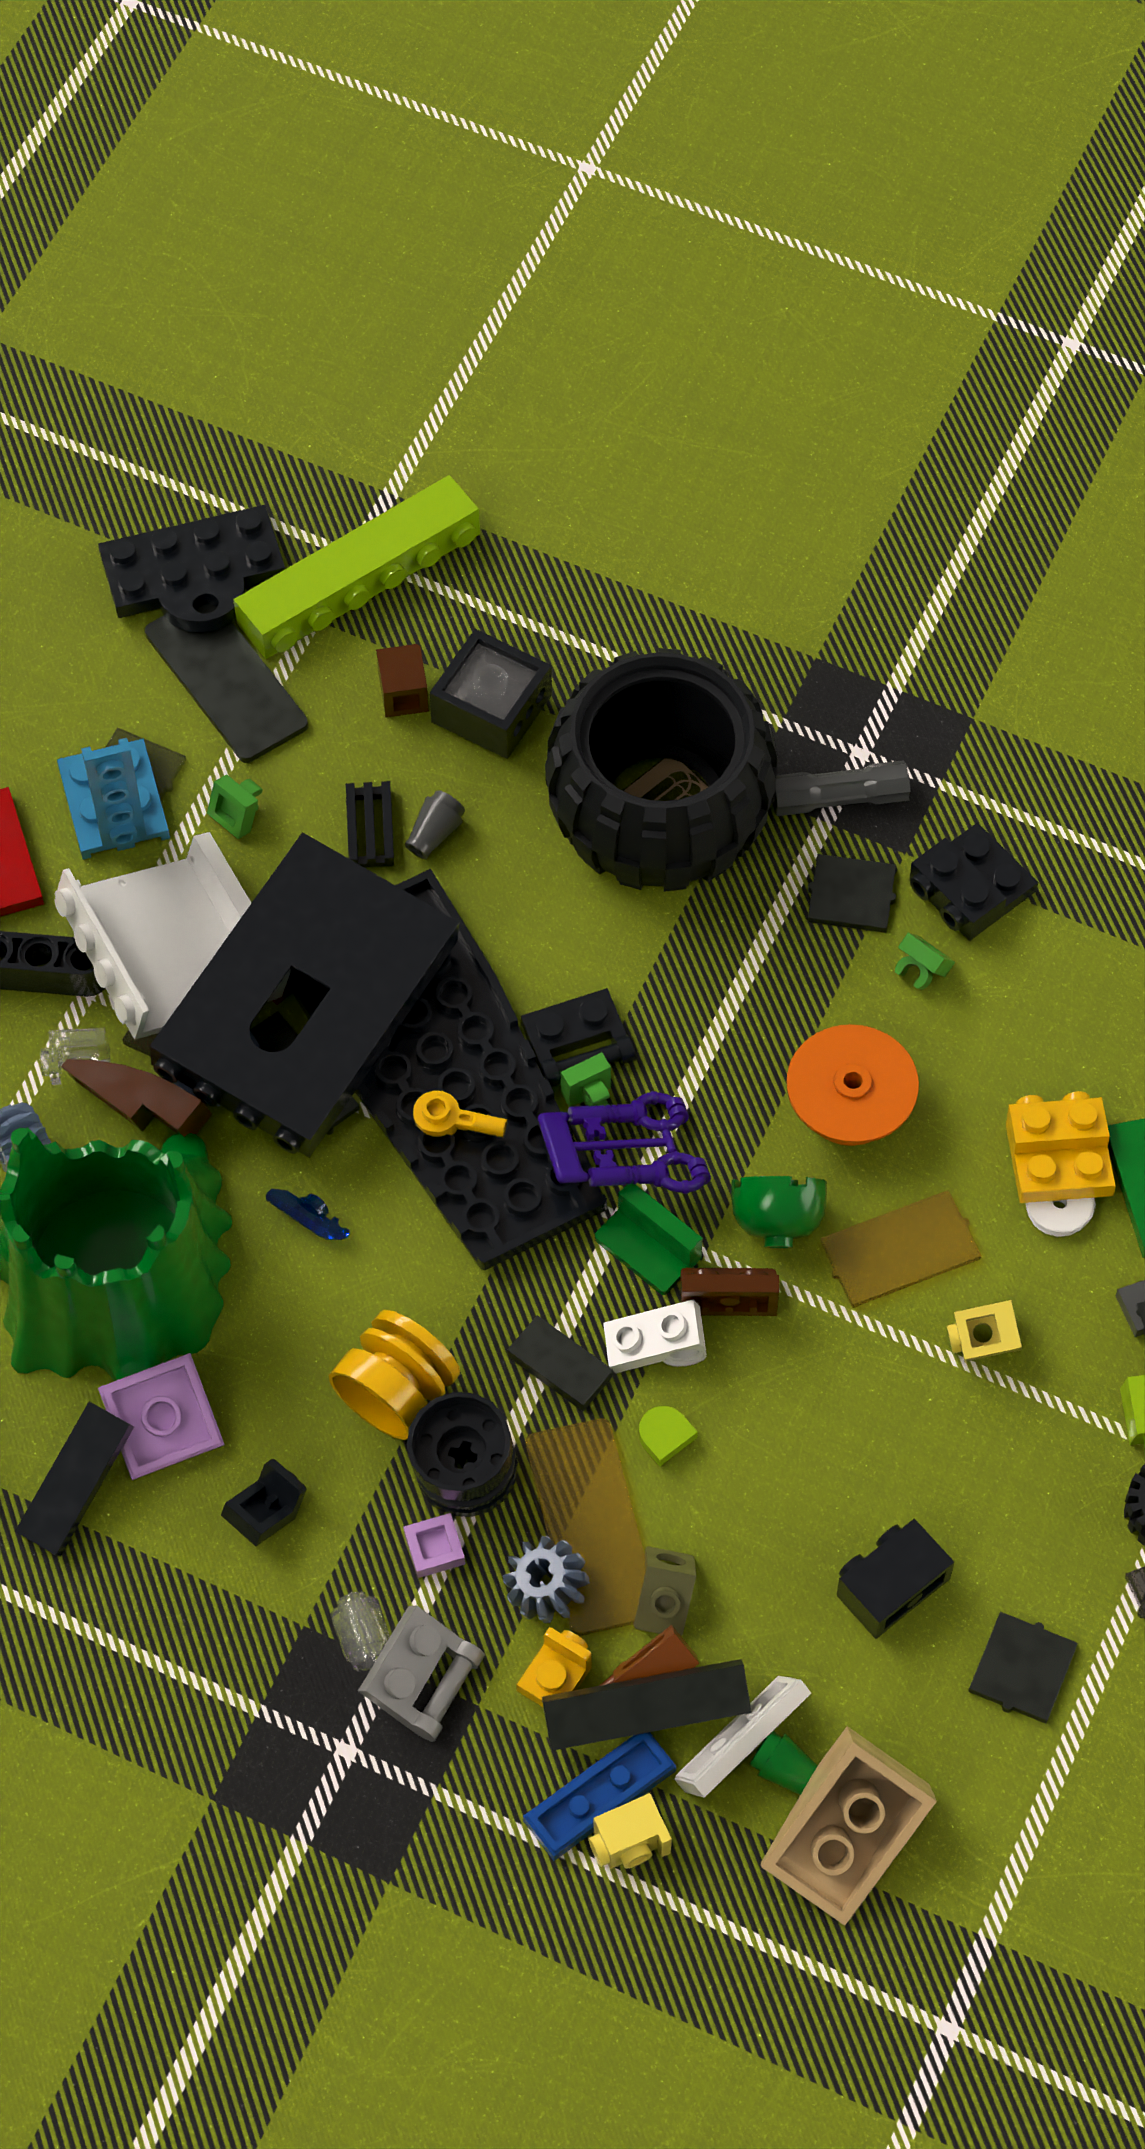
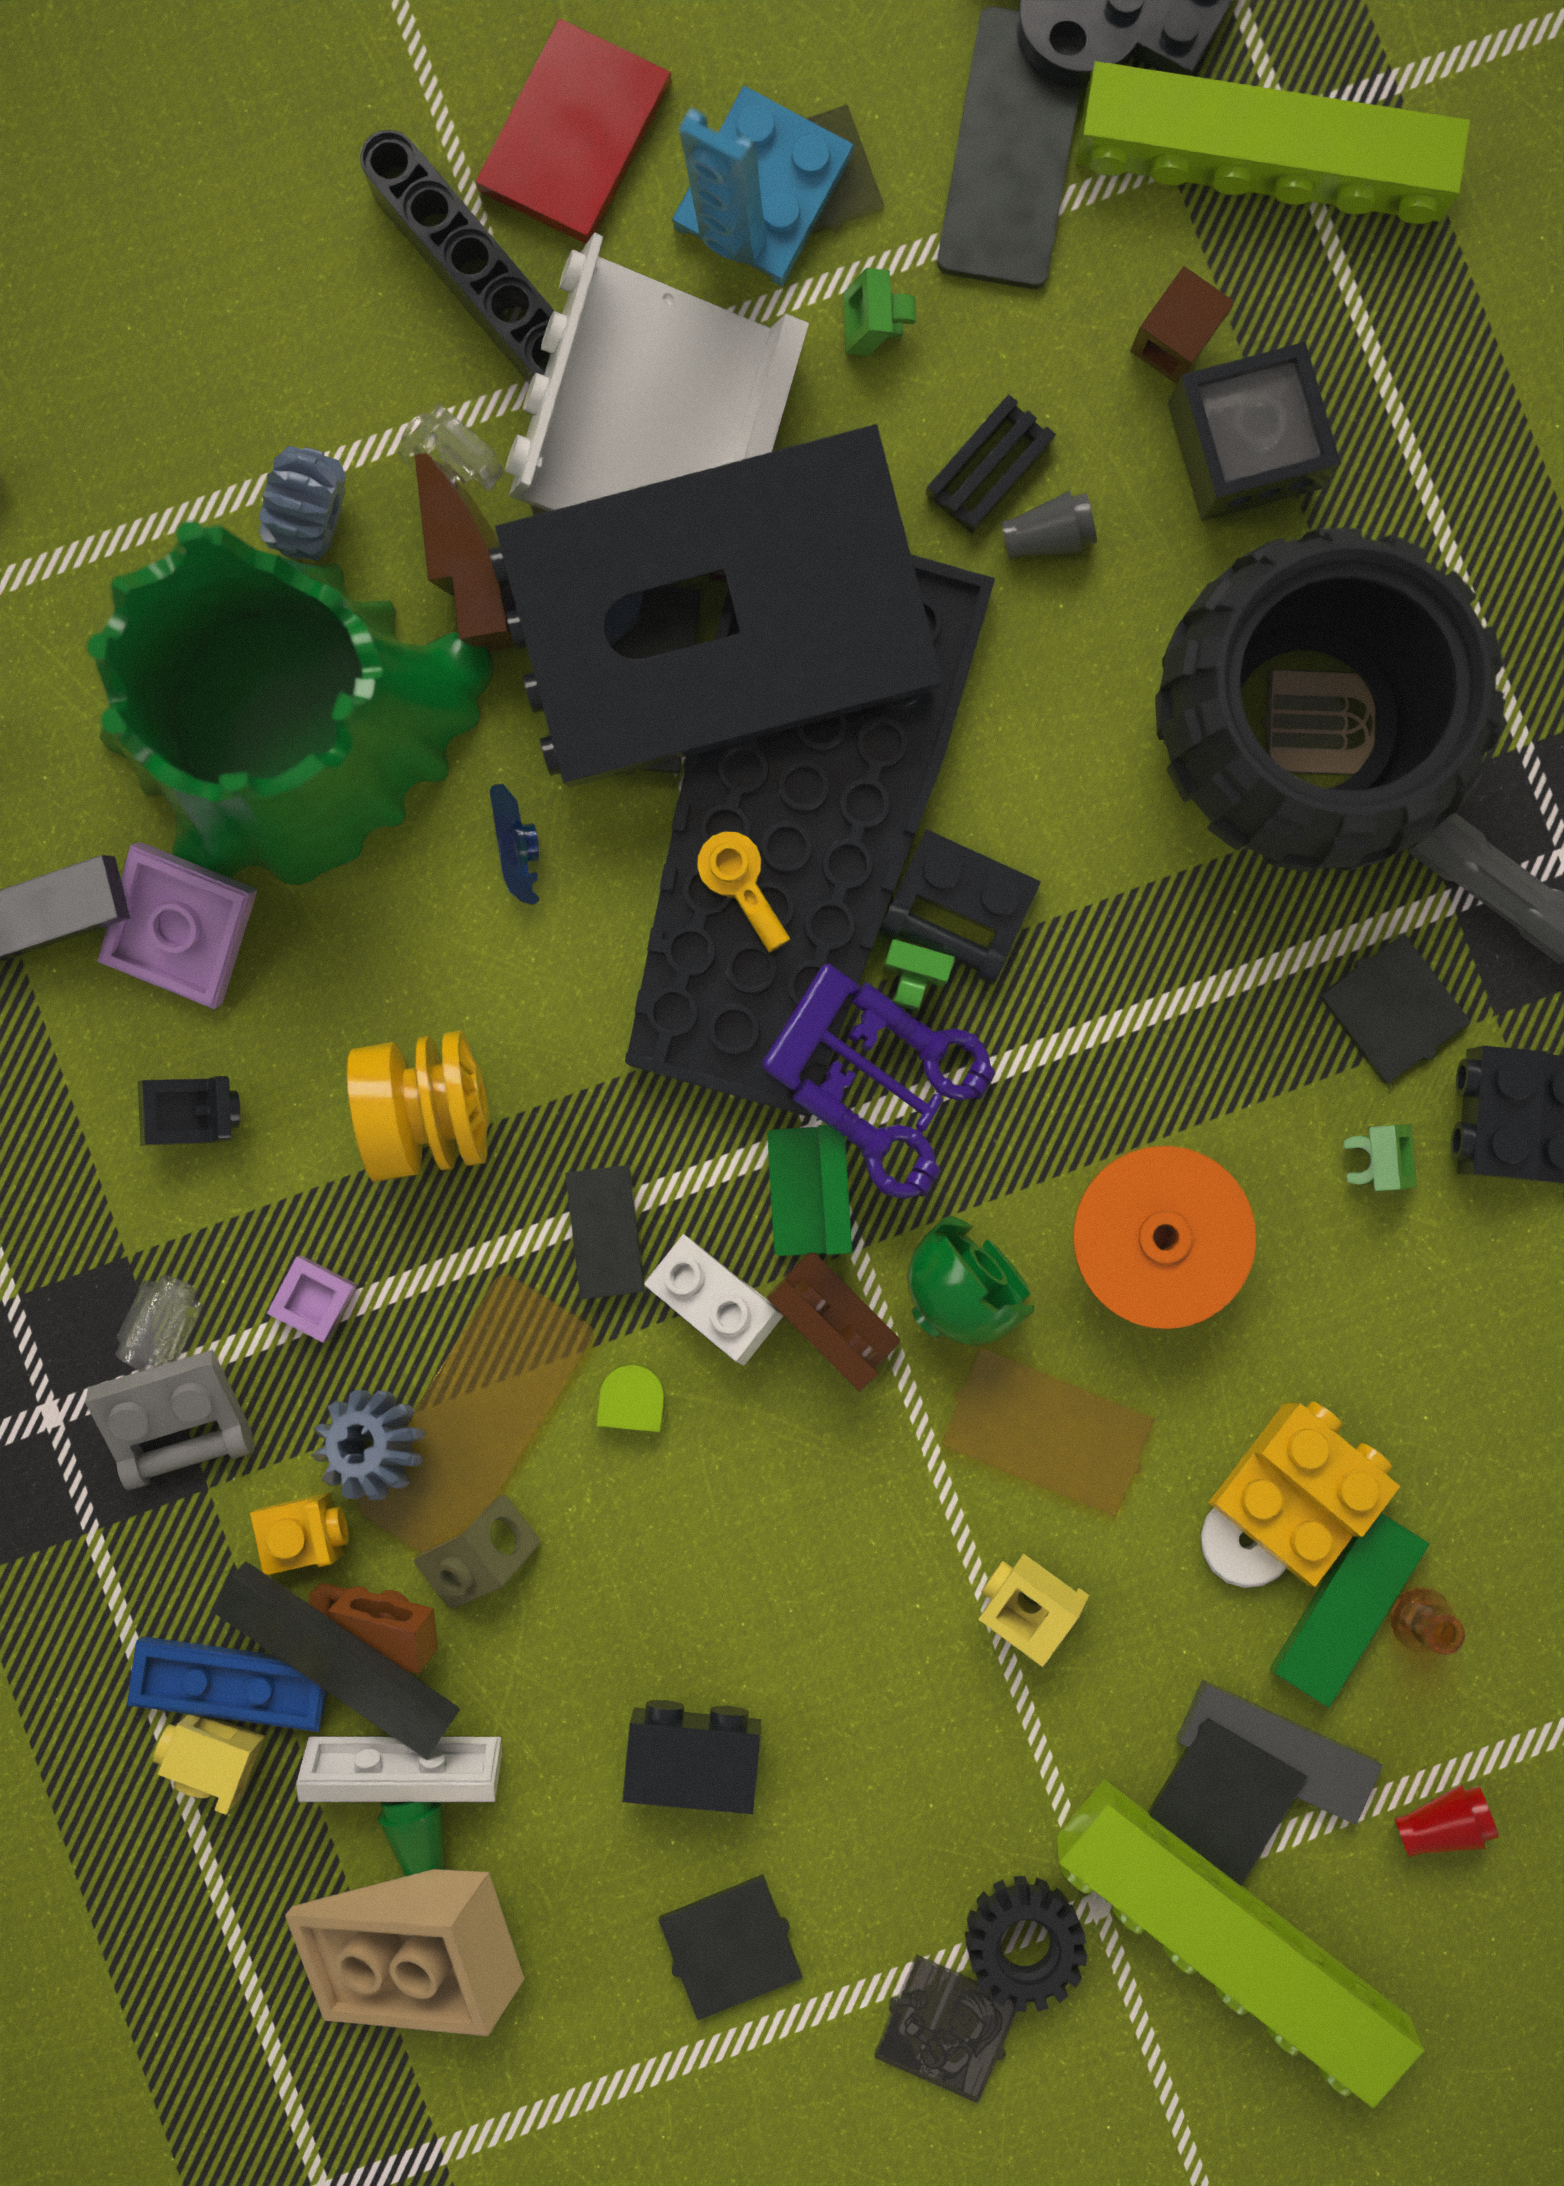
camera: 40 degrees right, 25 degrees up
(448, 1433) = (367, 1246): black wheel -> none

